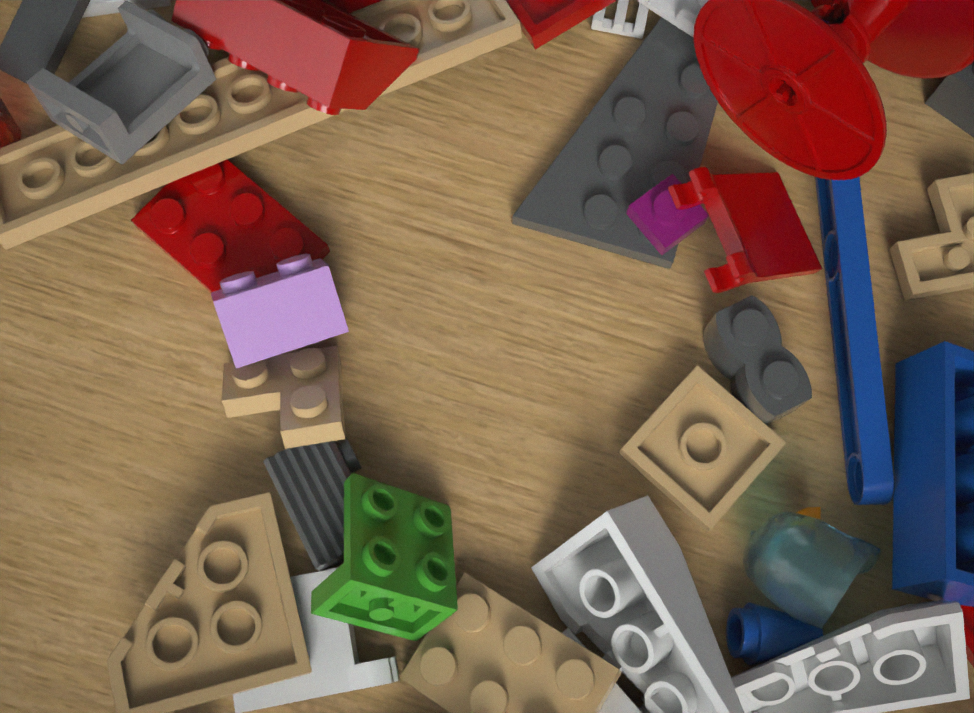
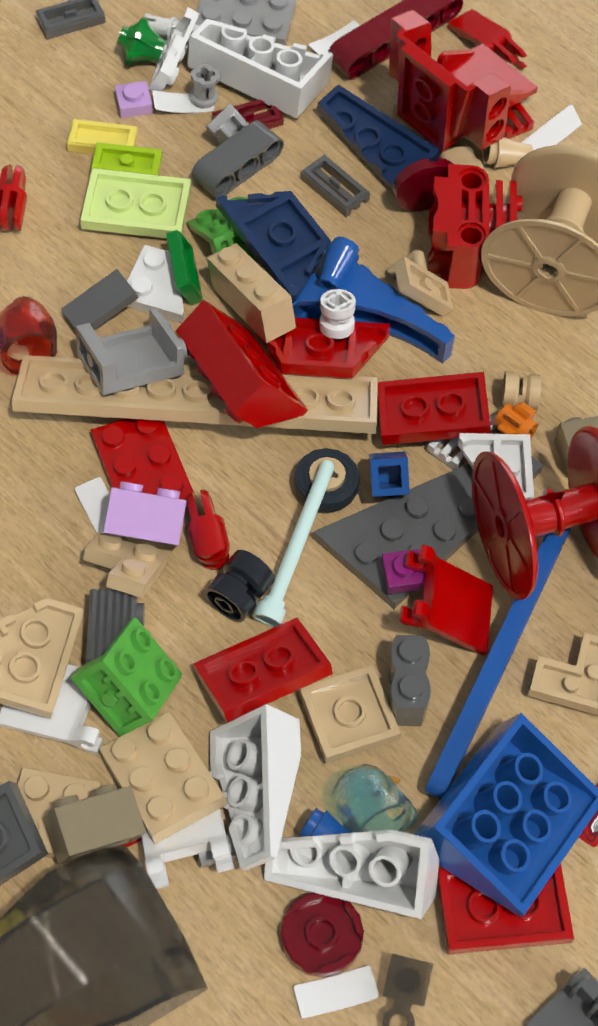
camera: 25 degrees right, 15 degrees down
(196, 320) = (95, 501): none -> white sticker
(376, 290) = (208, 533): none -> red arm
(461, 337) = (242, 582): none -> black wheel
(489, 155) = (343, 482): none -> black wheel
(518, 351) = (271, 609): none -> light aqua piece
(559, 450) = (262, 669): none -> red plate
(572, 86) = (389, 474): none -> blue brick

